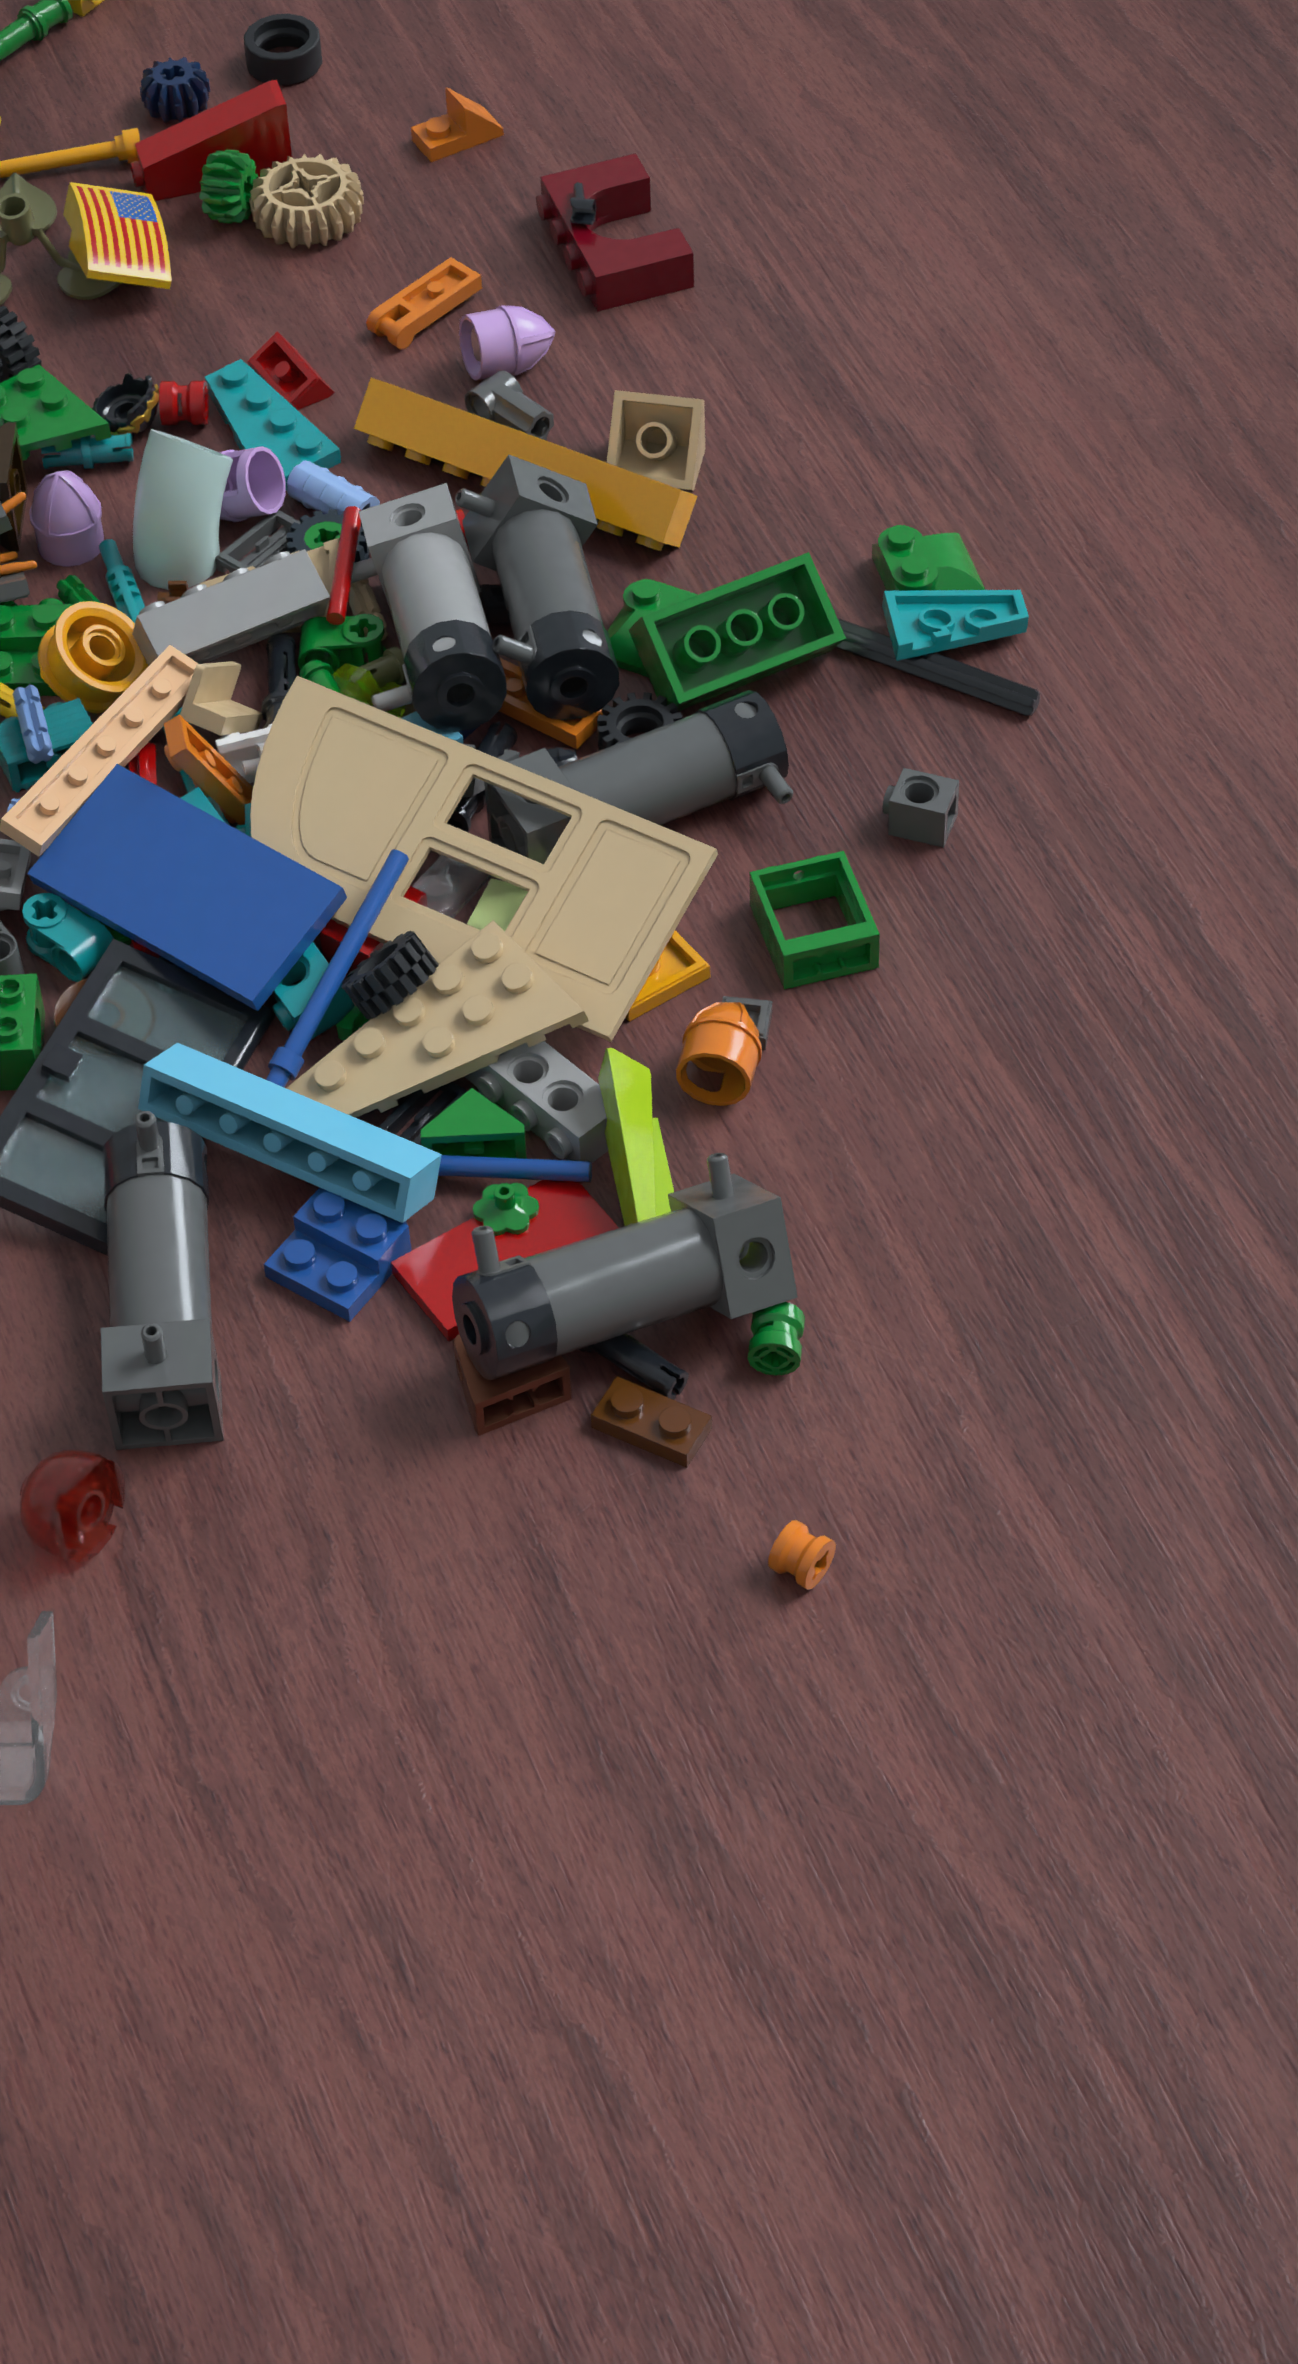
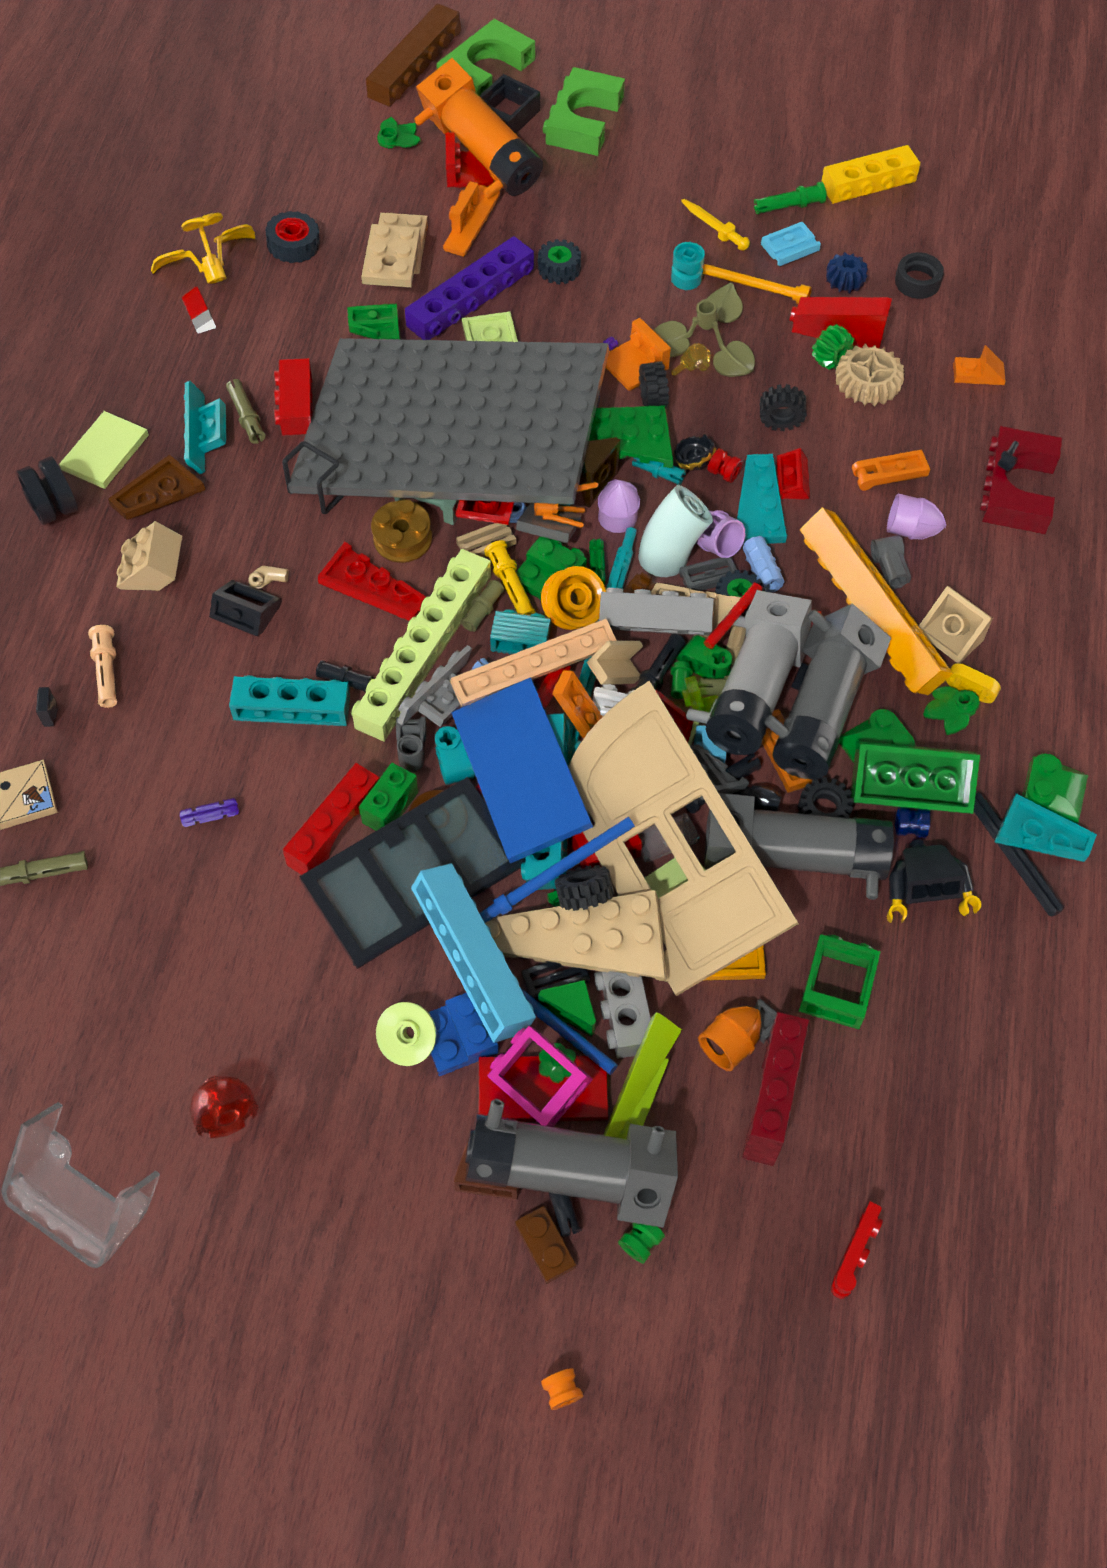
camera: 30 degrees right, 10 degrees up
(32, 292) = (694, 357): none -> clear yellow piece
(33, 724) = (514, 623): medium blue axle -> none
(62, 89) = (790, 243): none -> medium azure plate
(117, 235) = (755, 349): yellow slope -> none
(159, 1342) = (319, 1050): dark grey piece -> none
(206, 275) = (783, 397): none -> black tyre
(240, 1278) = (393, 1037): none -> yellowish green dish
(442, 1194) = (565, 1095): none -> dark pink window
(724, 539) = (949, 708): none -> green plate
(731, 499) = (970, 679): none -> yellow beam
(779, 689) = (912, 822): none -> clear blue wheel
(815, 1035) = (777, 1089): none -> dark red arch
(843, 739) = (928, 876): none -> black torso
(922, 807) = (947, 956): dark grey brick -> none
(1063, 1200) = (856, 1253): none -> red plate

